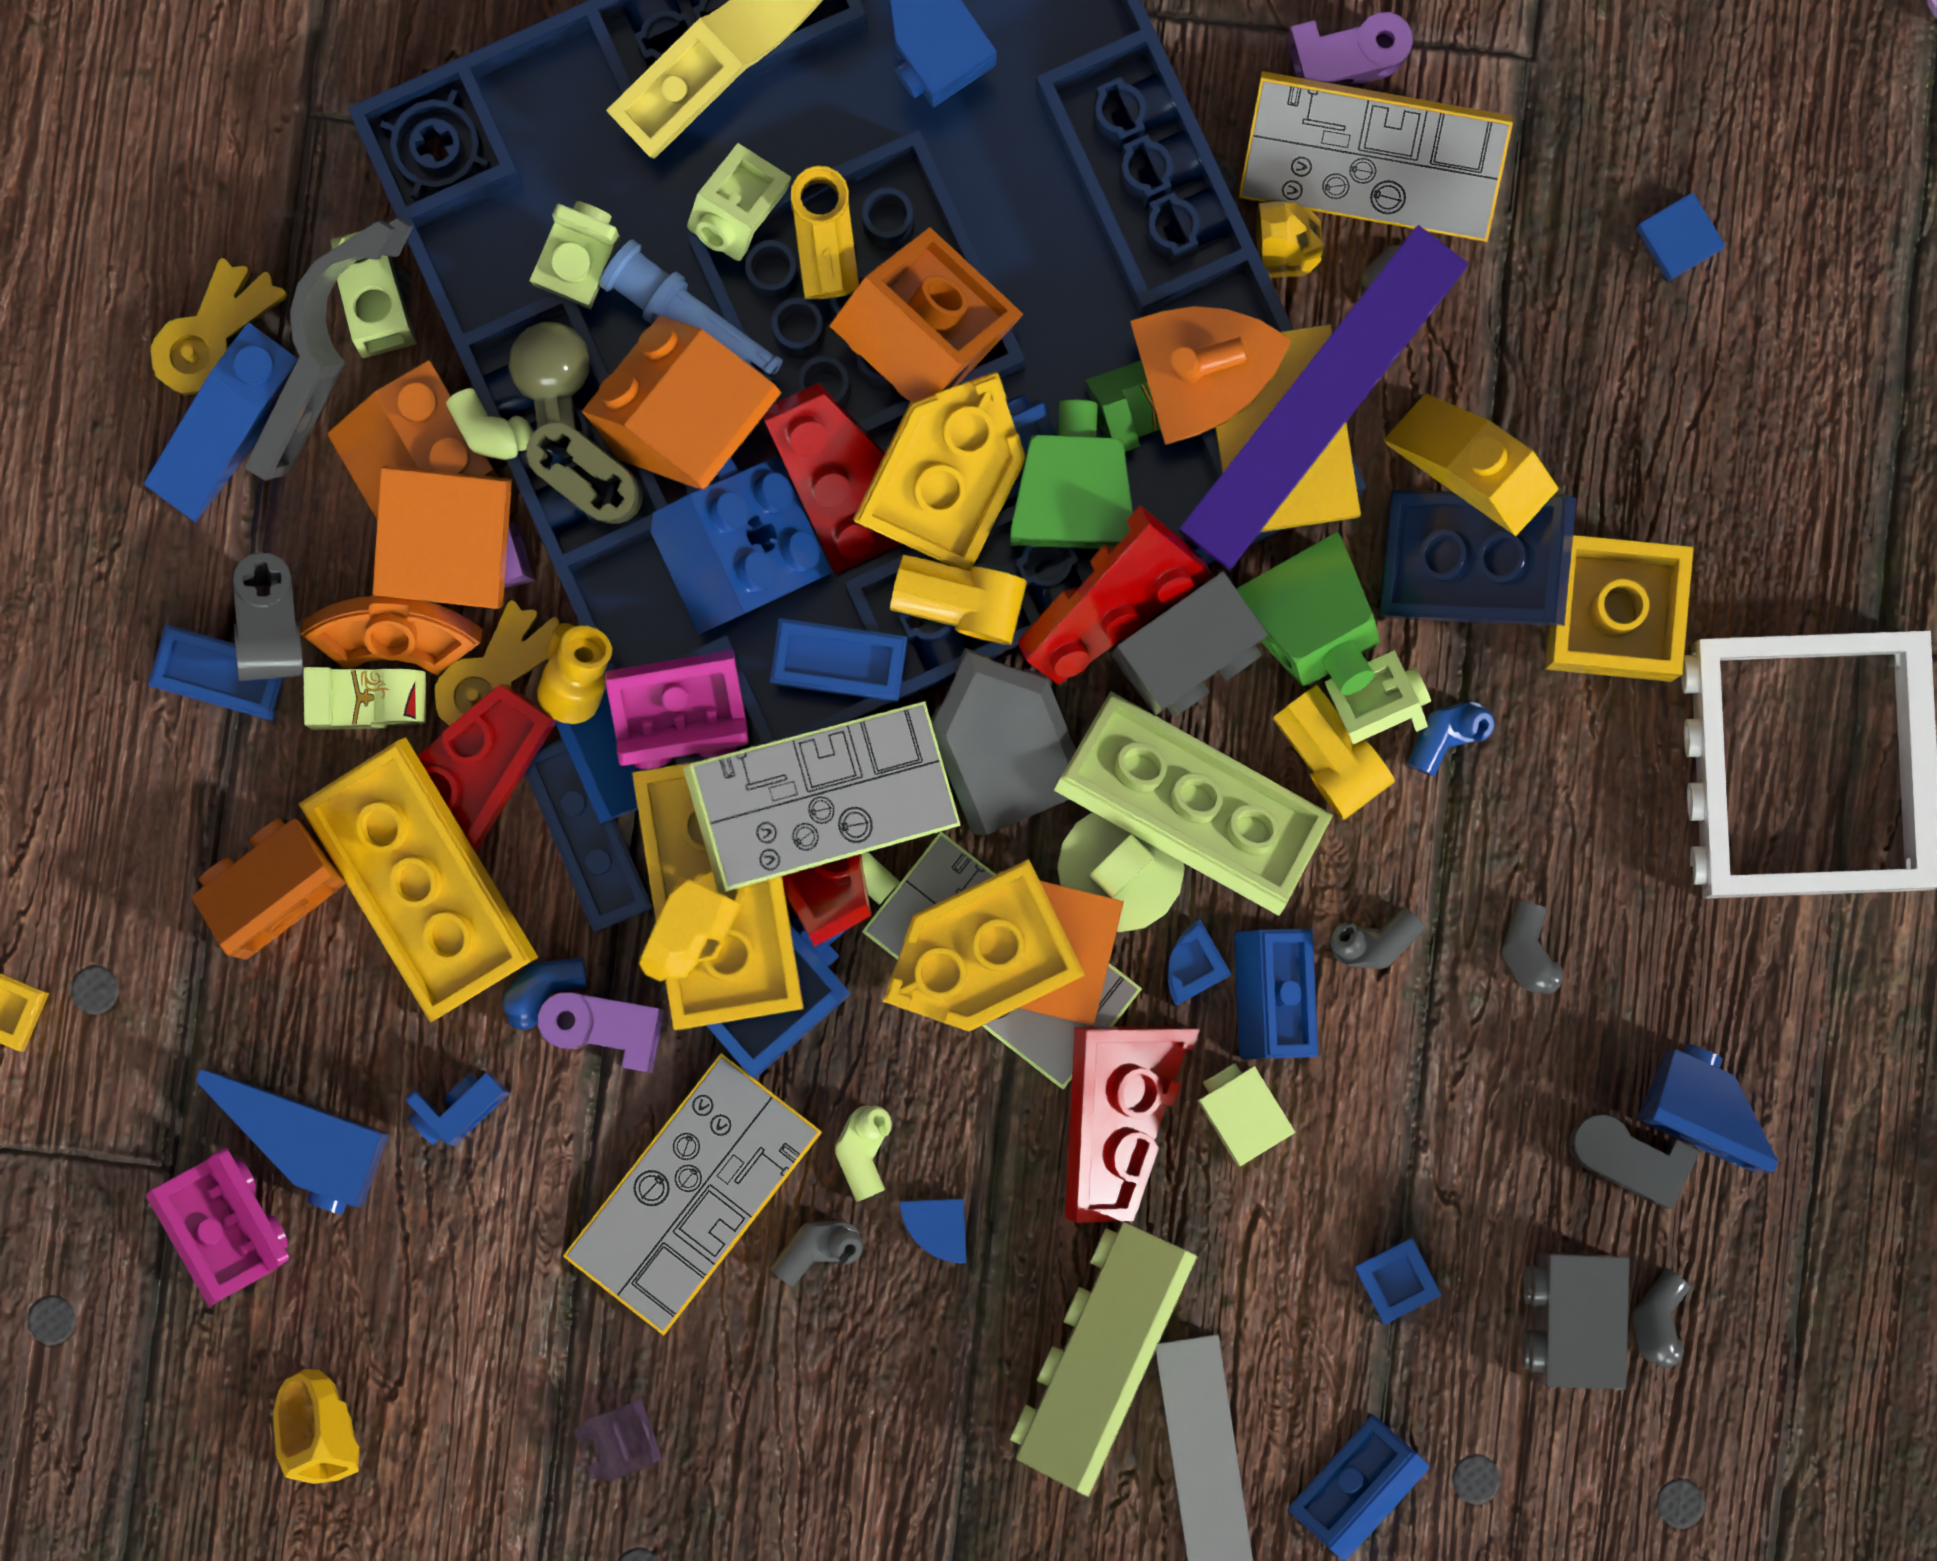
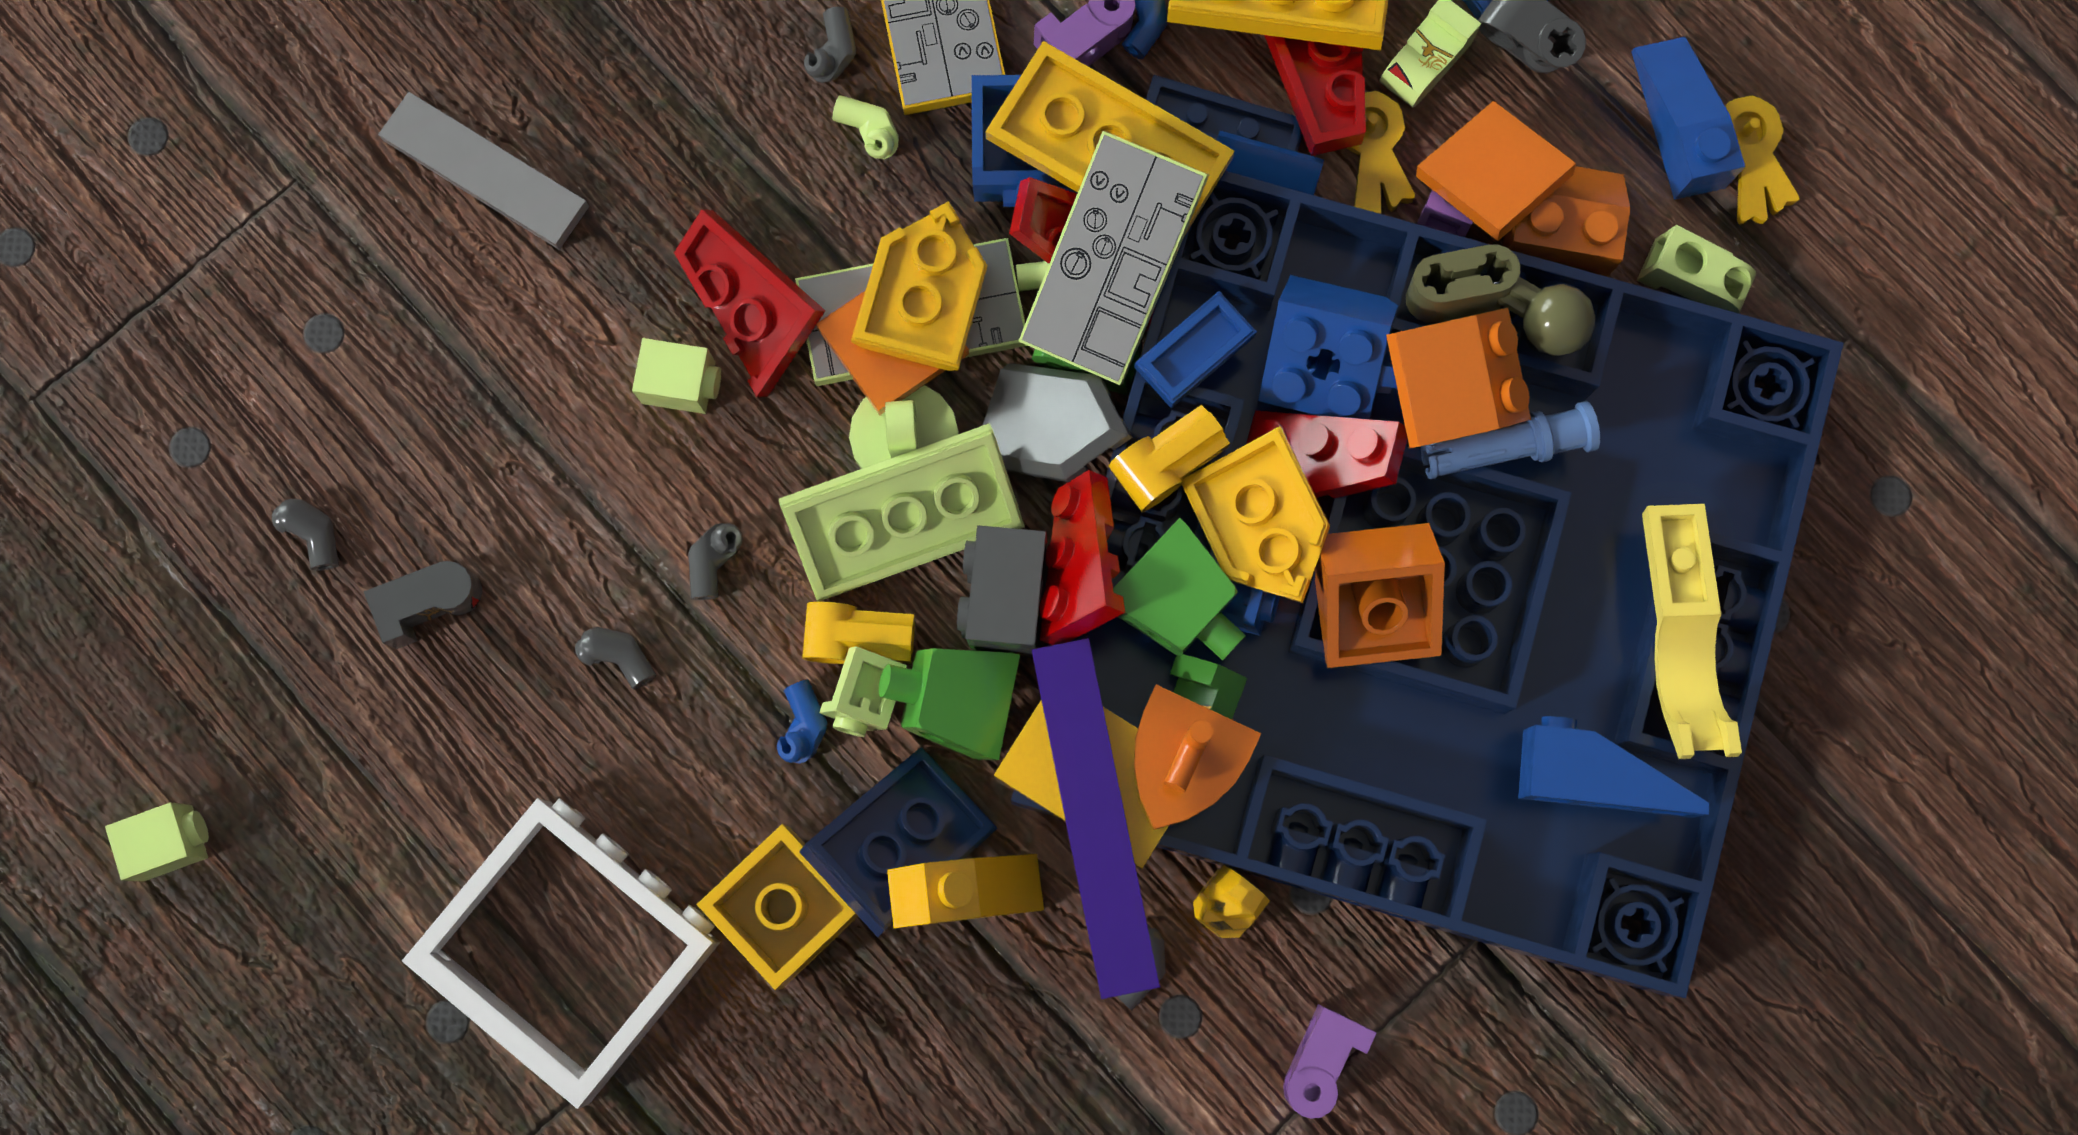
camera: 130 degrees right, 5 degrees down
(318, 359) = (1690, 195): dark grey piece -> none
(391, 630) = (1470, 88): orange tile -> none
(486, 434) = (1547, 247): yellowish green arm -> none
(574, 673) = (1332, 179): yellow piece -> none
(576, 253) = (1619, 403): yellowish green bracket -> none
(677, 709) = (1250, 214): dark pink bracket -> none
(687, 930) = (1099, 92): yellow rock -> none
(736, 201) = (1568, 538): yellowish green bracket -> none
(824, 240) = (1489, 572): yellow piece -> none
(937, 1227) = (780, 132): blue tile -> none
(1104, 1356) = (602, 155): yellowish green slope -> none
(1194, 964) = (801, 431): blue tile -> none
(1276, 994) = (735, 467): blue slope -> none
(1358, 1488) = (385, 253): blue slope -> none
(1375, 156) = (1235, 1014): light grey tile -> none
(1397, 1280) = (487, 387): blue tile -> none
(1577, 1320) = (349, 466): dark grey brick -> none
(1706, 1109) = (407, 665): blue slope -> none

